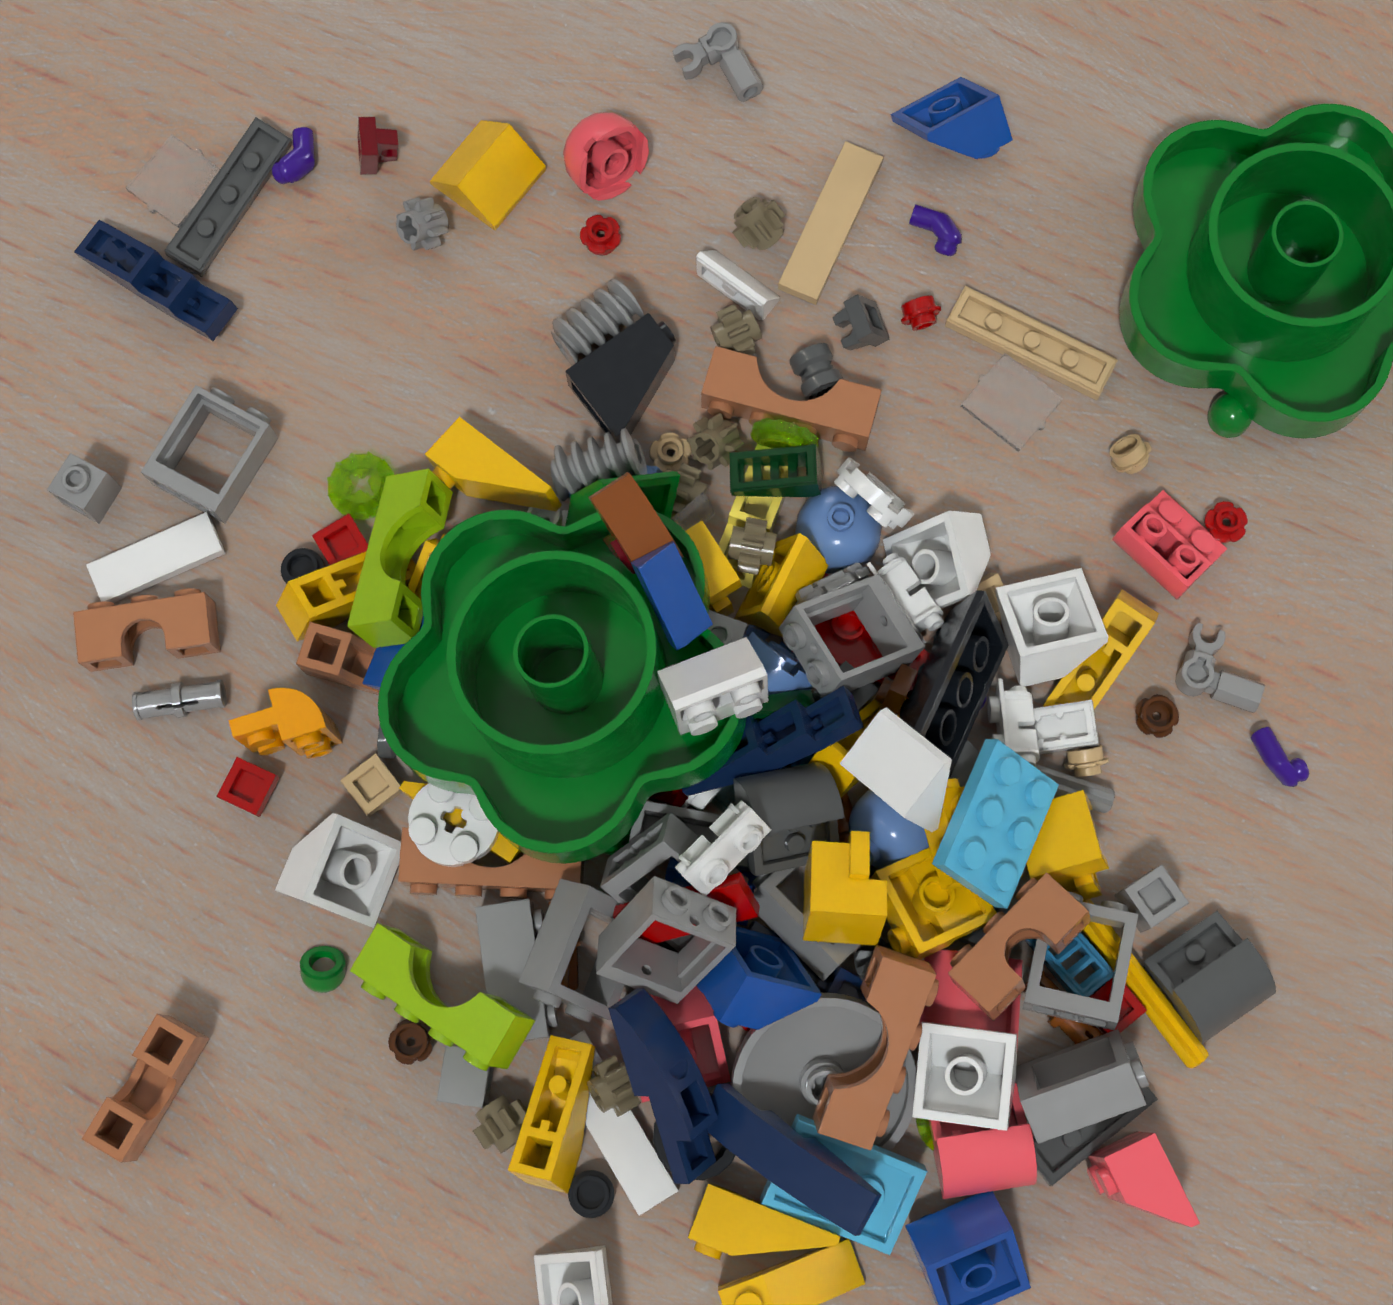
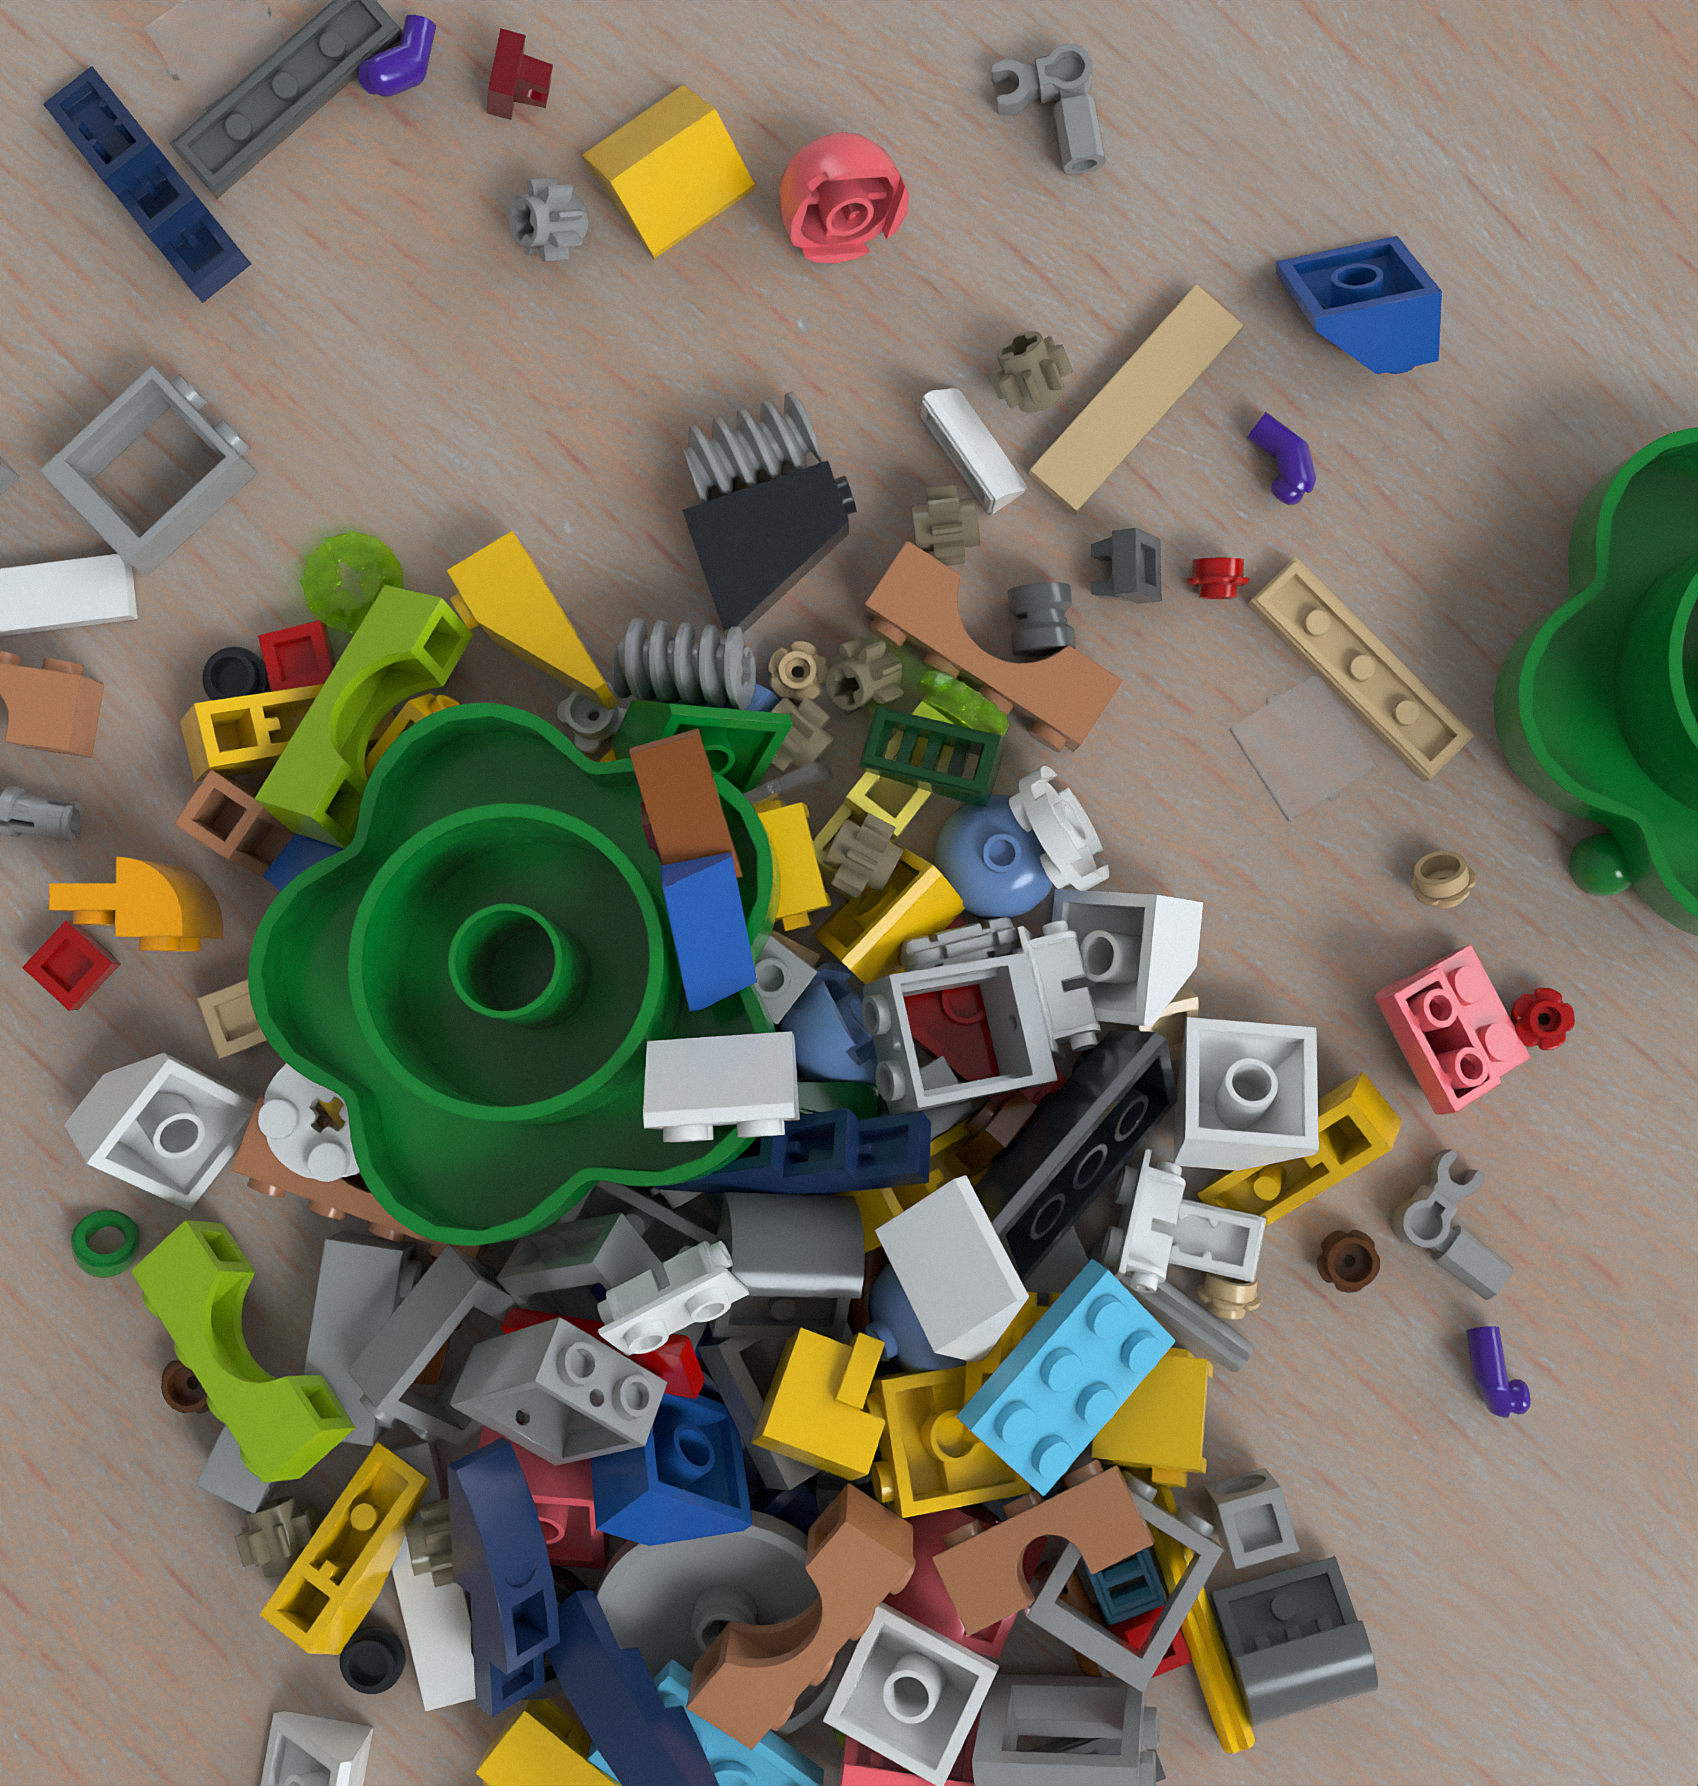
camera: 15 degrees right, 10 degrees up
(596, 244) = (806, 330): red plate -> none

